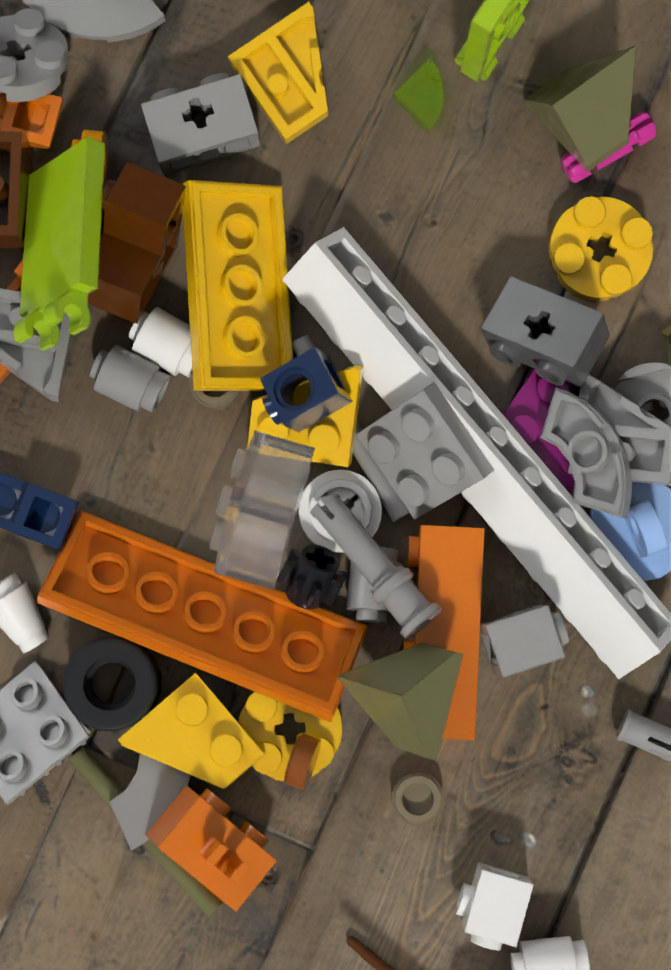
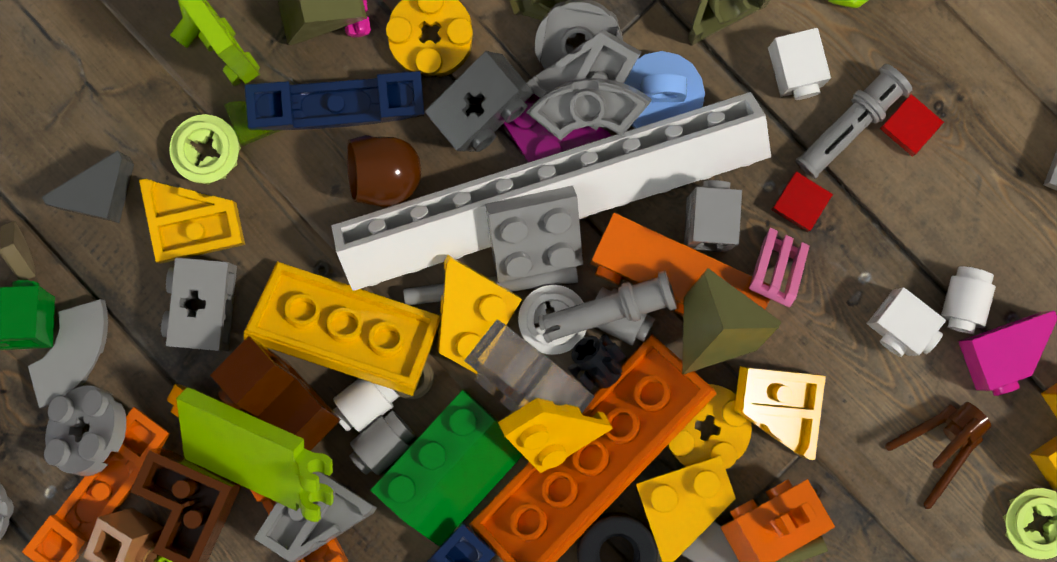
camera: 70 degrees left, 0 degrees up
(132, 463) = (448, 469): none -> green slope
(213, 556) = (551, 432): none -> yellow wing
(302, 761) = (739, 427): dark orange tile -> none
(326, 395) = (456, 289): dark blue brick -> none
(347, 802) = (783, 405): none -> wing
(354, 43) = (201, 129): none -> yellowish green gear
(417, 798) = (799, 350): dark tan tile -> none
(427, 257) = (382, 170): none -> reddish brown helmet
(479, 175) = (334, 103): none -> dark blue slope
(523, 737) = (785, 251): none -> bright pink tile
(584, 735) = (802, 202): none -> red tile

